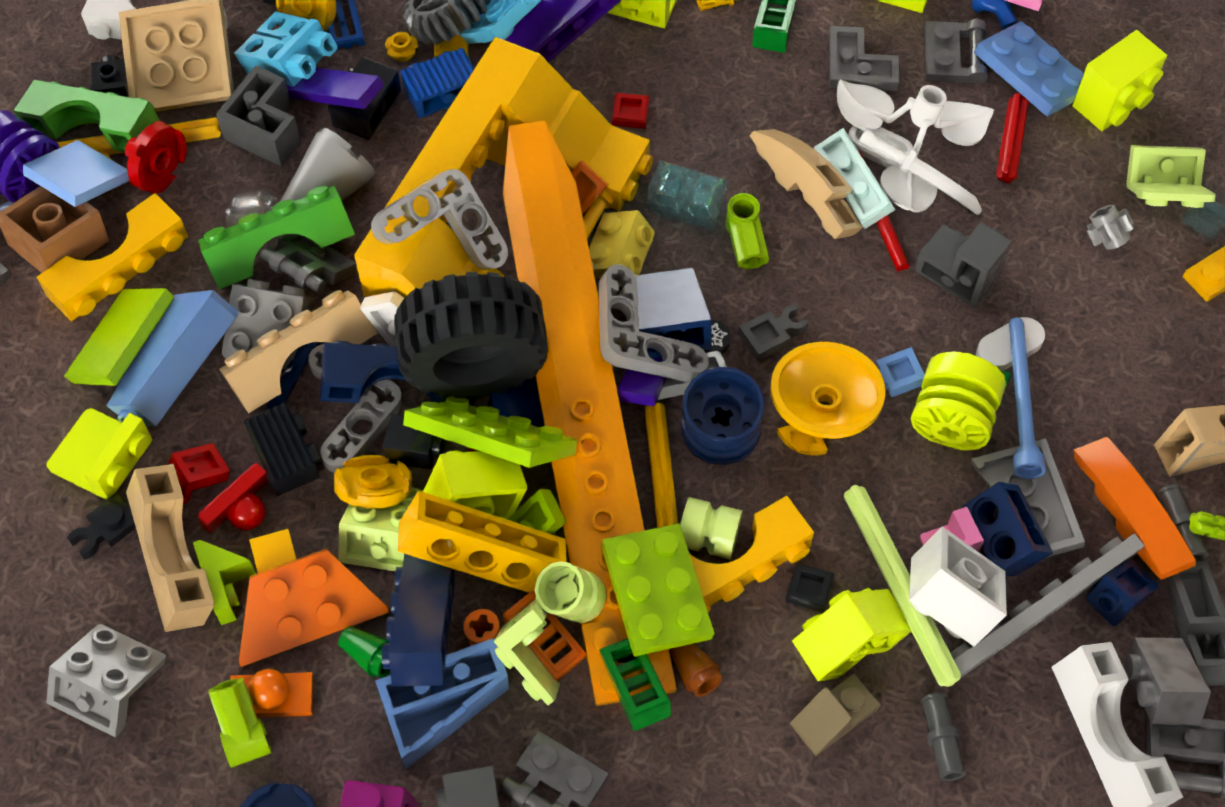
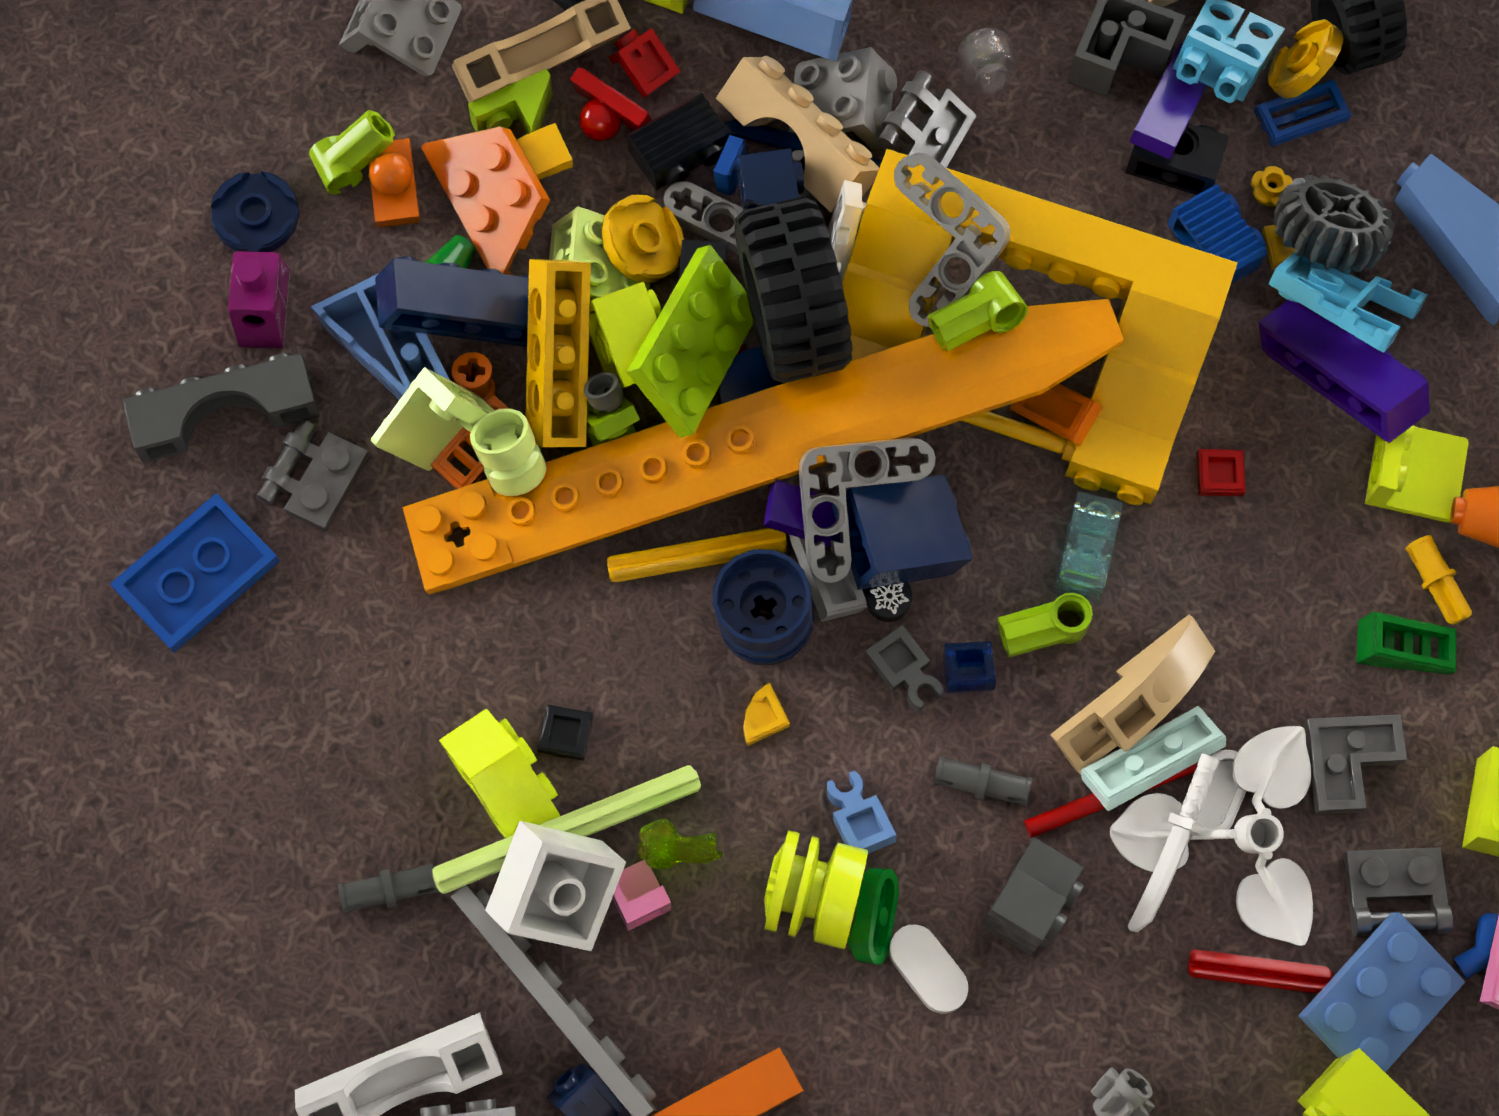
camera: 80 degrees right, 10 degrees up
(233, 250) = (978, 121): bright green arch -> none
(313, 410) = (725, 169): none -> blue tile
(329, 164) = (1045, 125): light grey cone -> none
(506, 207) = (988, 306): none -> lime piece
(524, 517) = (604, 392): none -> dark grey hinge
(621, 240) = (1002, 477): light yellow bracket -> none
(644, 707) = (412, 524): green slope -> none
(657, 589) = (524, 546): lime plate -> none
(696, 669) = (453, 607): dark orange cone -> none
(710, 527) = (622, 601): yellowish green wheel -> none
(776, 287) = (969, 667): none -> clear blue brick
(778, 536) = (619, 684): yellow arch -> none
(829, 375) = (837, 708): yellow dish -> none
(834, 714) = (411, 768): dark tan slope -> none
(866, 289) = (982, 781): none -> dark grey pin
(914, 516) = (663, 846): none -> clear neon green plate
(1013, 523) = (650, 956): dark blue brick -> none
(1028, 460) = (747, 979): medium blue piece -> none
(1043, 494) = (710, 996): light grey wing -> none

